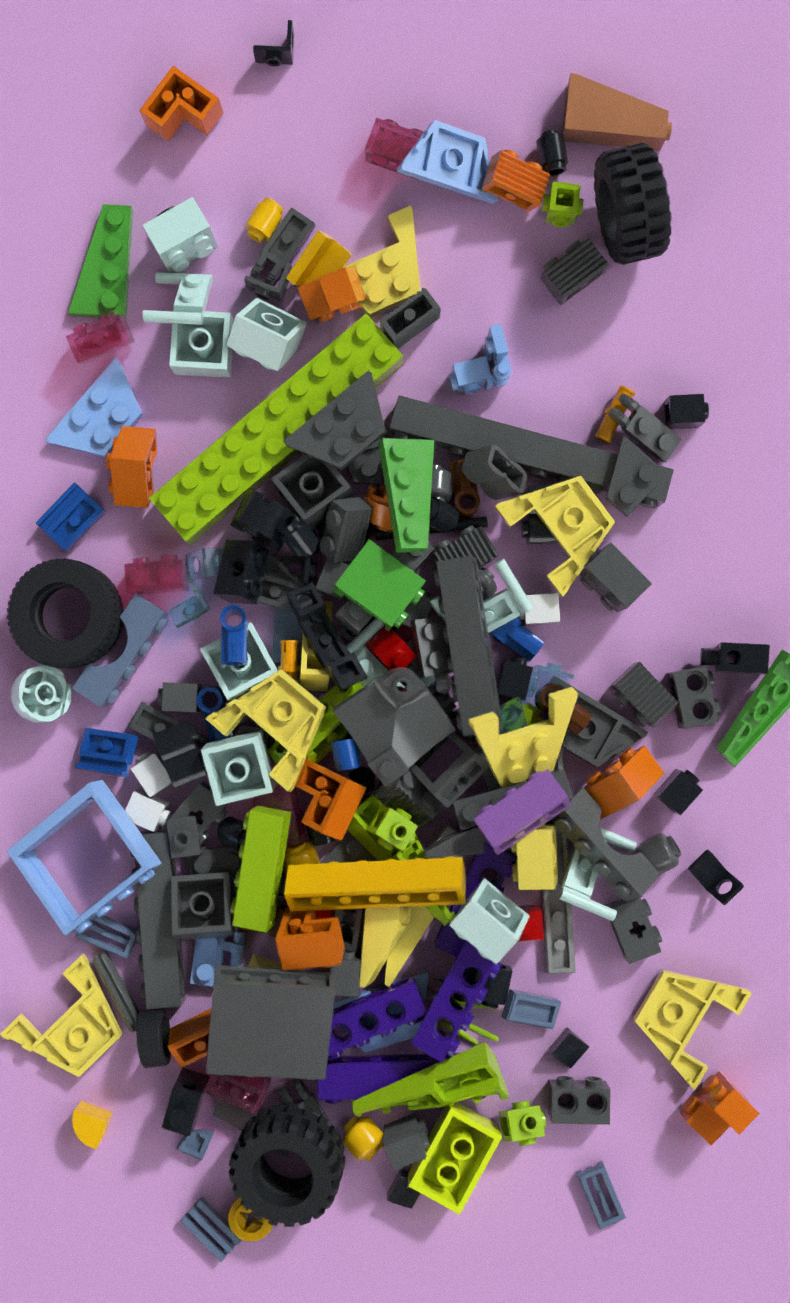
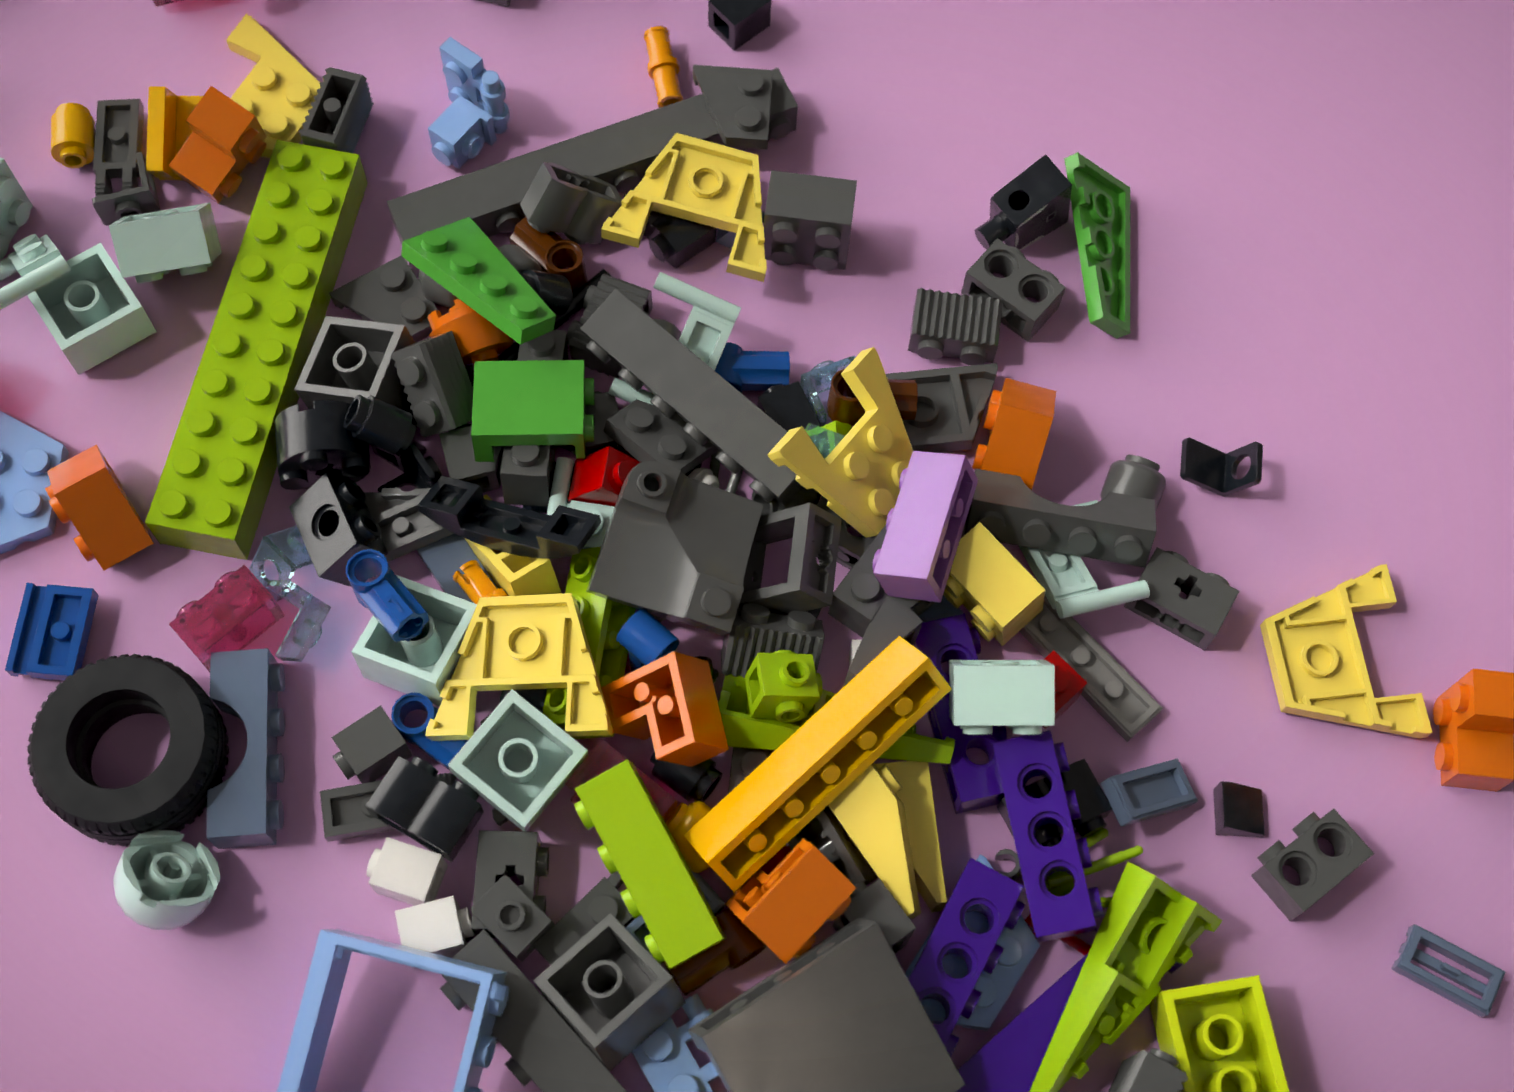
camera: 40 degrees left, 20 degrees down
(106, 752) = (318, 891): blue plate -> none
(231, 832) = (578, 866): black brick -> none
(343, 426) = (342, 268): dark grey wing -> none
(522, 1123) = (1268, 946): lime brick -> none
(544, 610) = (759, 319): white brick -> none
(645, 429) = (688, 48): dark grey hinge -> none
(679, 791) = (1091, 403): black brick -> none

